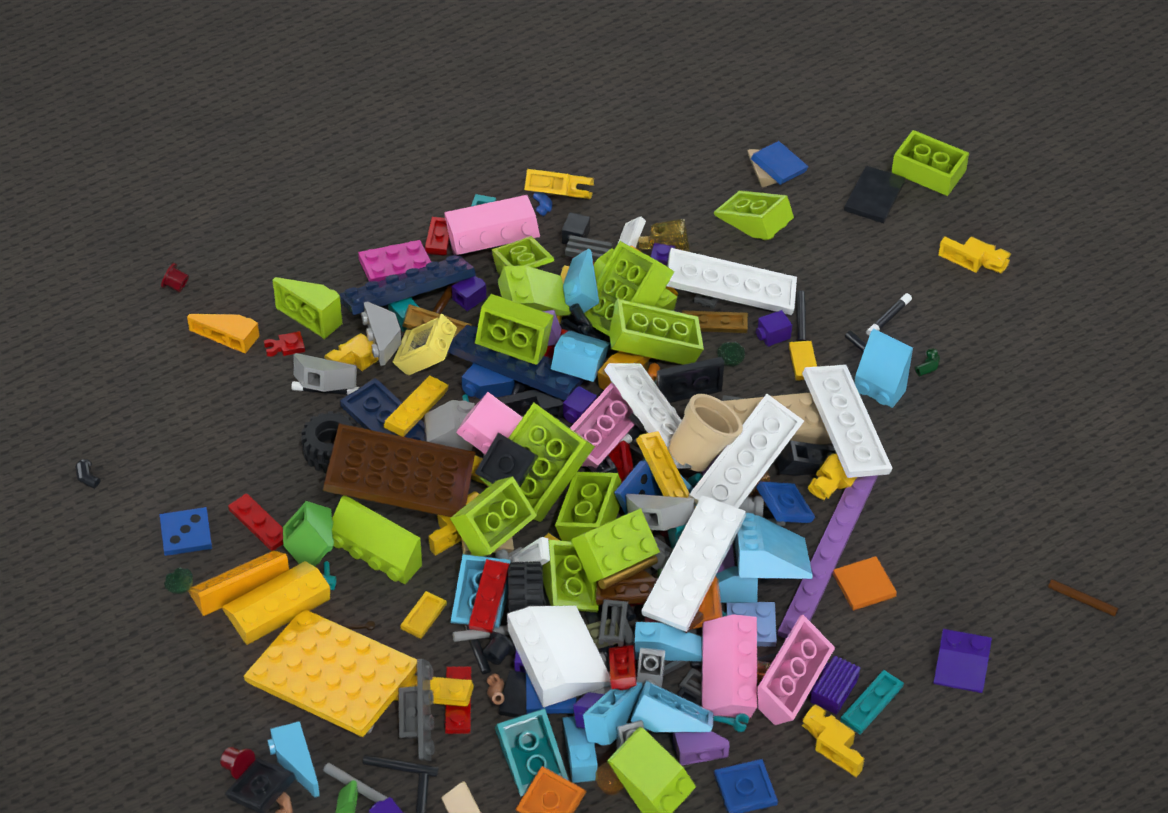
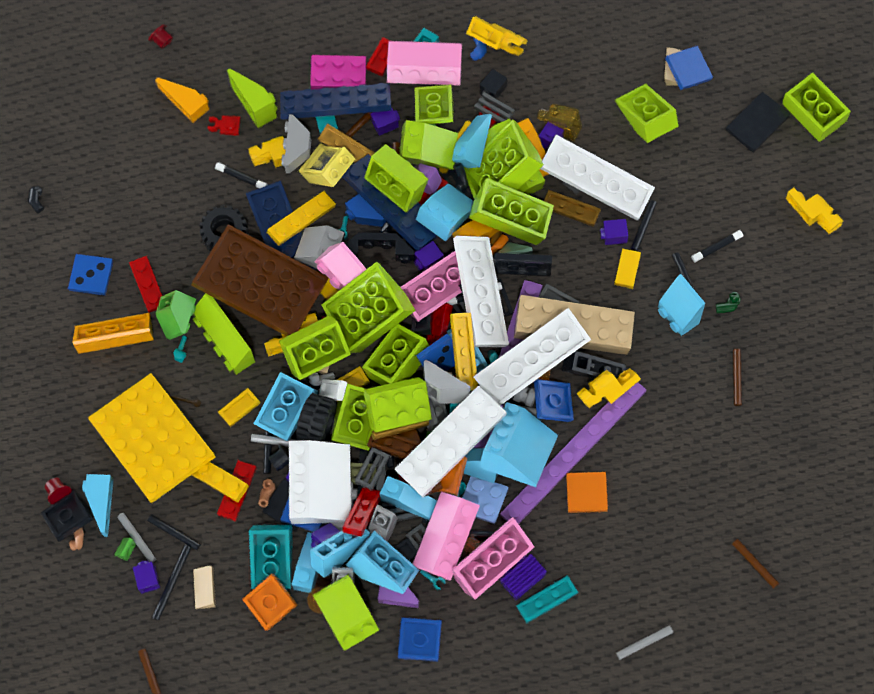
camera: 25 degrees right, 20 degrees up
(179, 581) = (69, 319): clear green plate -> none
(277, 601) = (132, 361): yellow slope -> none
(323, 373) = (240, 166): light grey slope -> none
(415, 711) = (197, 496): dark grey bracket -> none
(489, 596) = (286, 415): red plate -> none
(505, 460) = (342, 302): black tile -> none
(632, 231) = (534, 105): white tile -> none
(704, 431) = (505, 327): tan piece -> none
(731, 353) = (571, 239): clear green plate -> none
(833, 740) = (502, 623): yellow plate -> none
(847, 421) = (627, 348): white plate -> none
(962, 660) = (631, 590): dark purple slope -> none
(973, 430) = (737, 377): none -> reddish brown bar
(1002, 711) = (644, 642): none -> light grey bar

